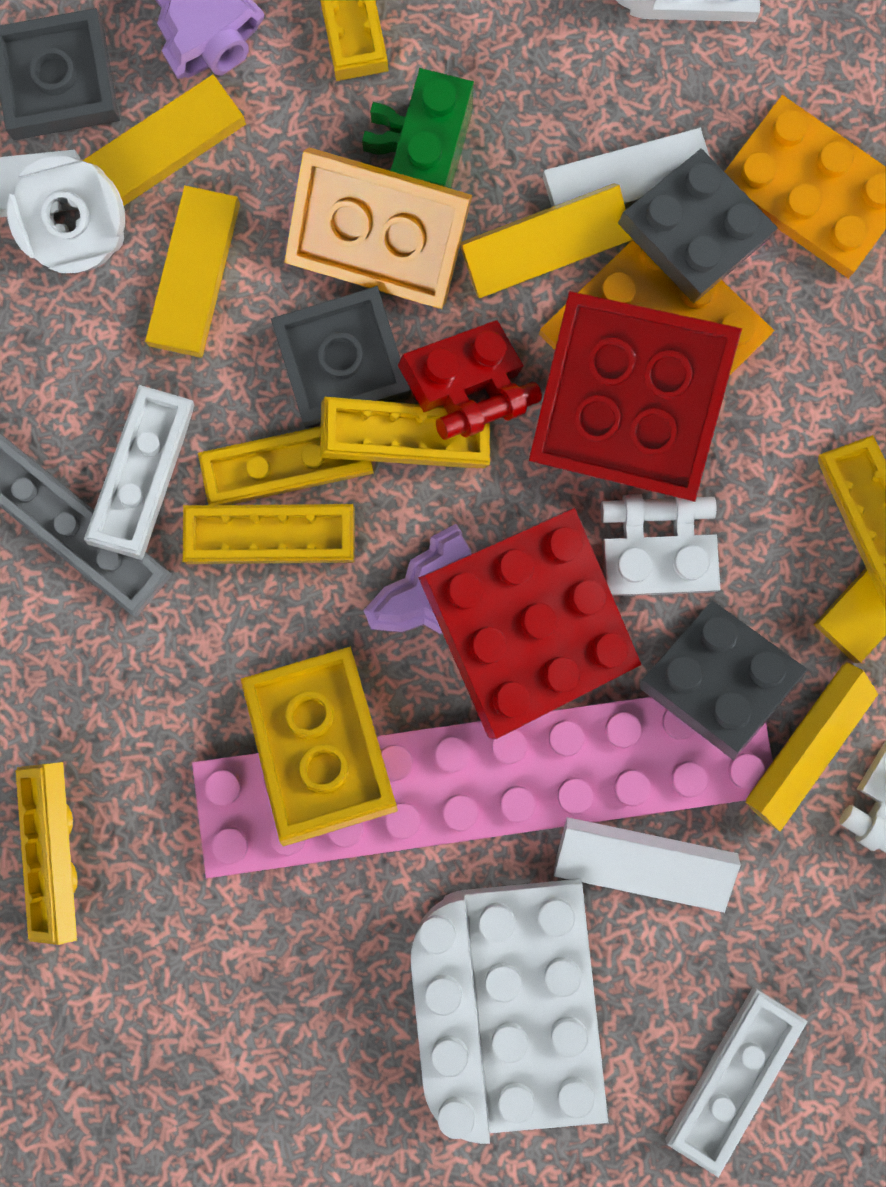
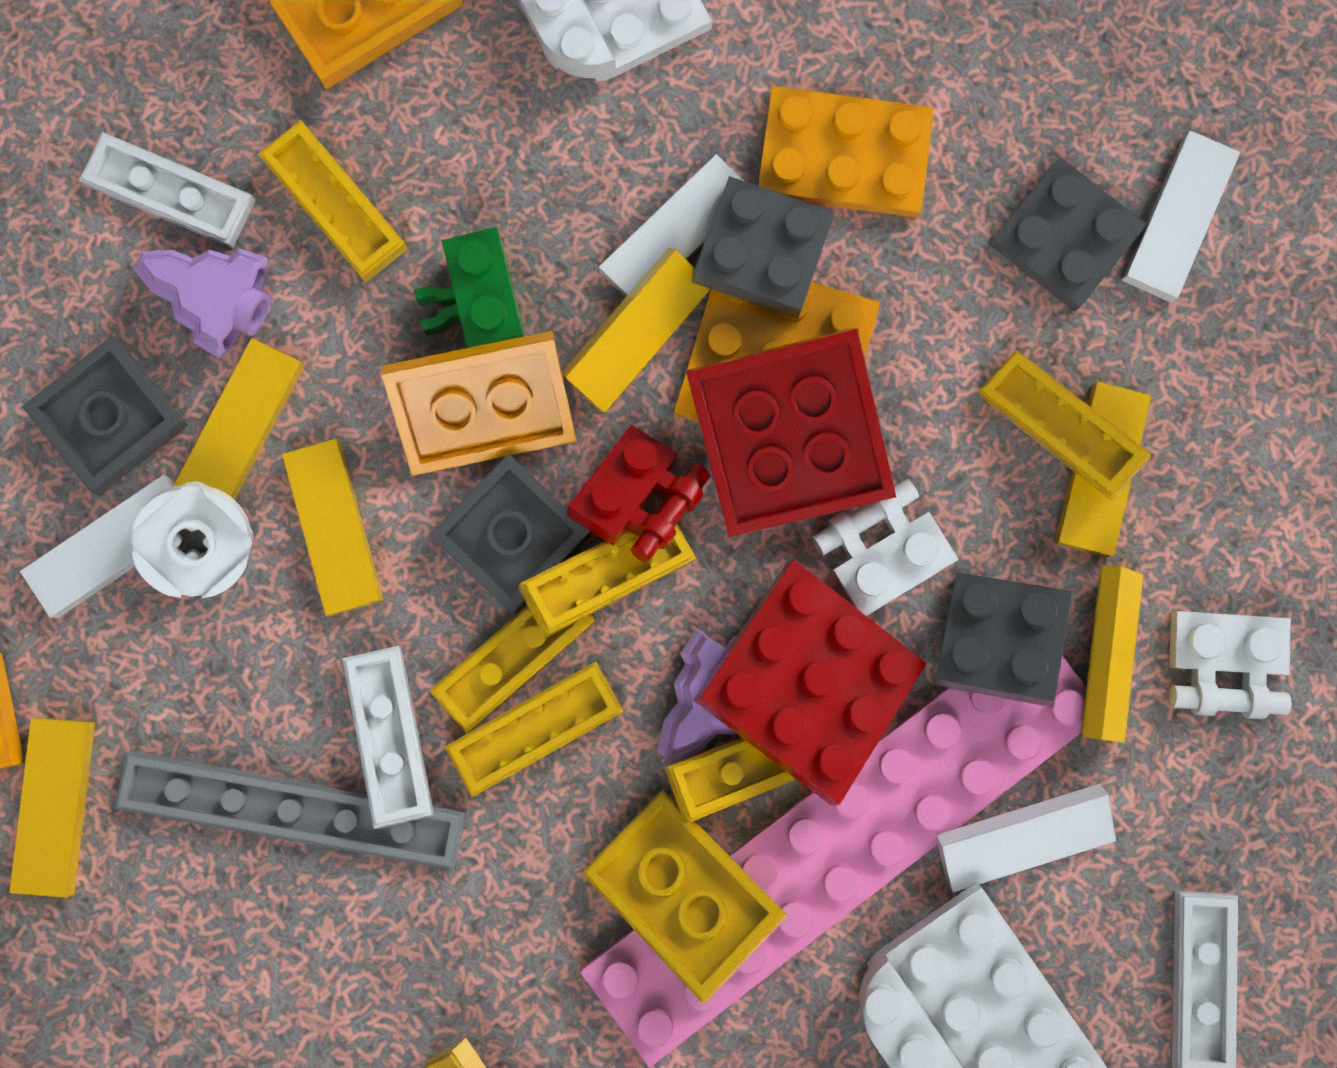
camera: 30 degrees left, 0 degrees up
(407, 663) = (722, 778): none -> yellow tile

